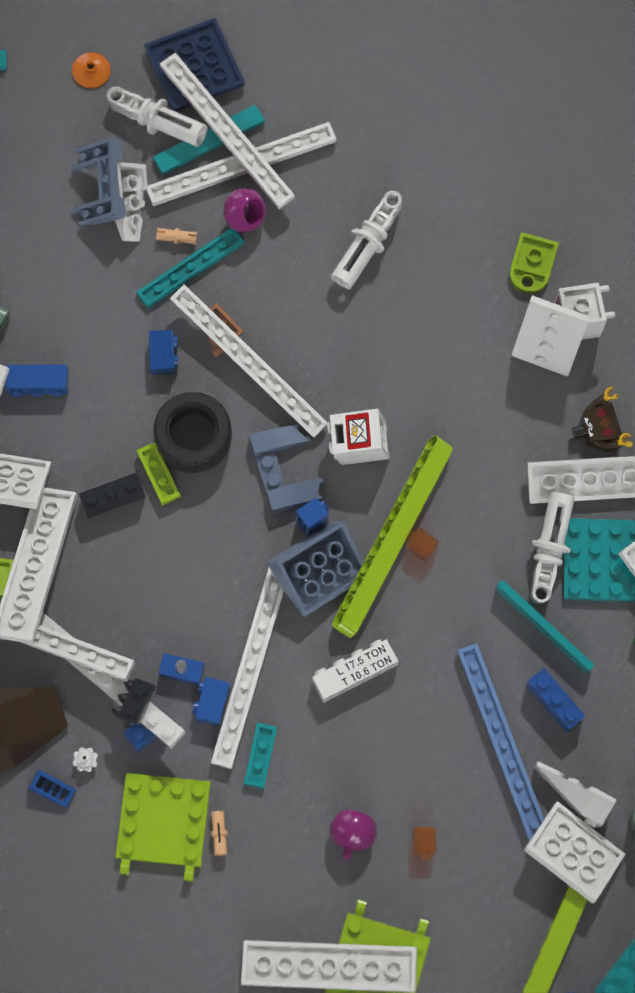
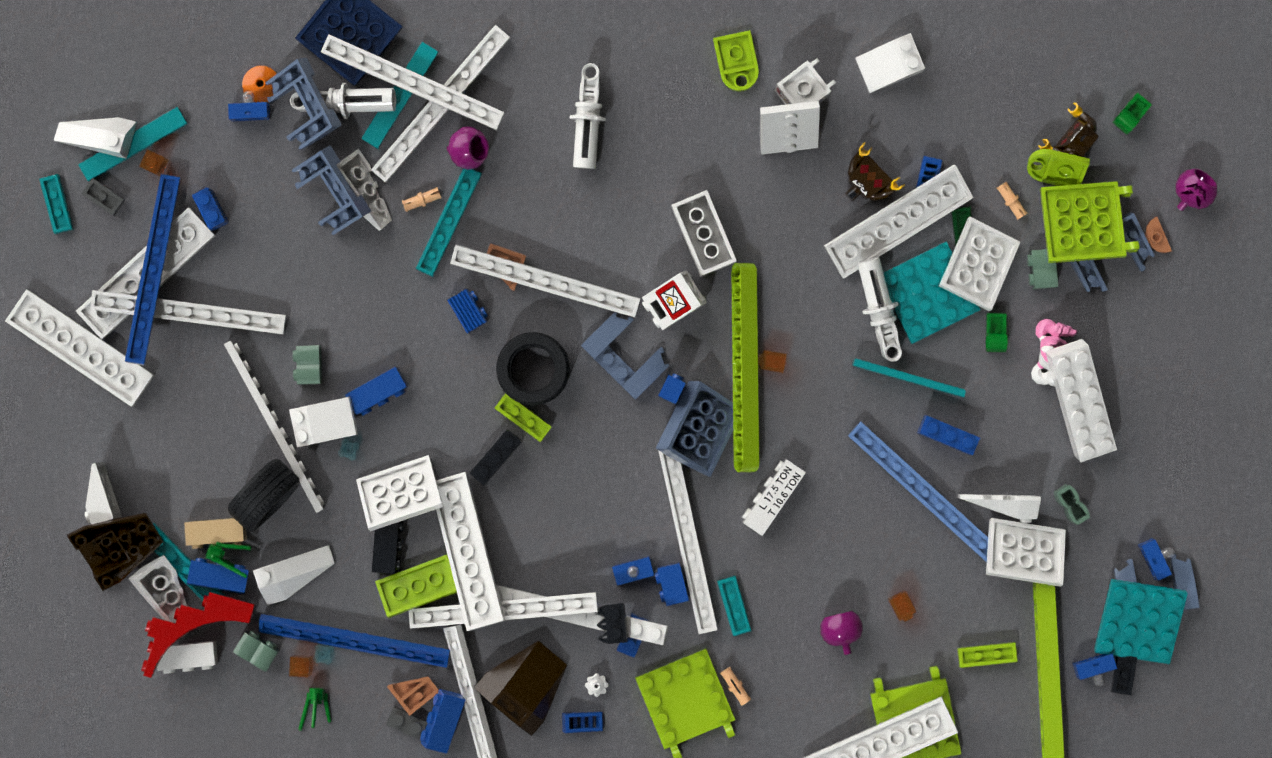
camera: 20 degrees left, 15 degrees up
(67, 83) = (249, 109): none -> blue piece
(128, 119) = (299, 77): none -> sand blue wedge
(419, 394) = (703, 233): none -> white brick
(484, 936) = (987, 654): none -> lime plate

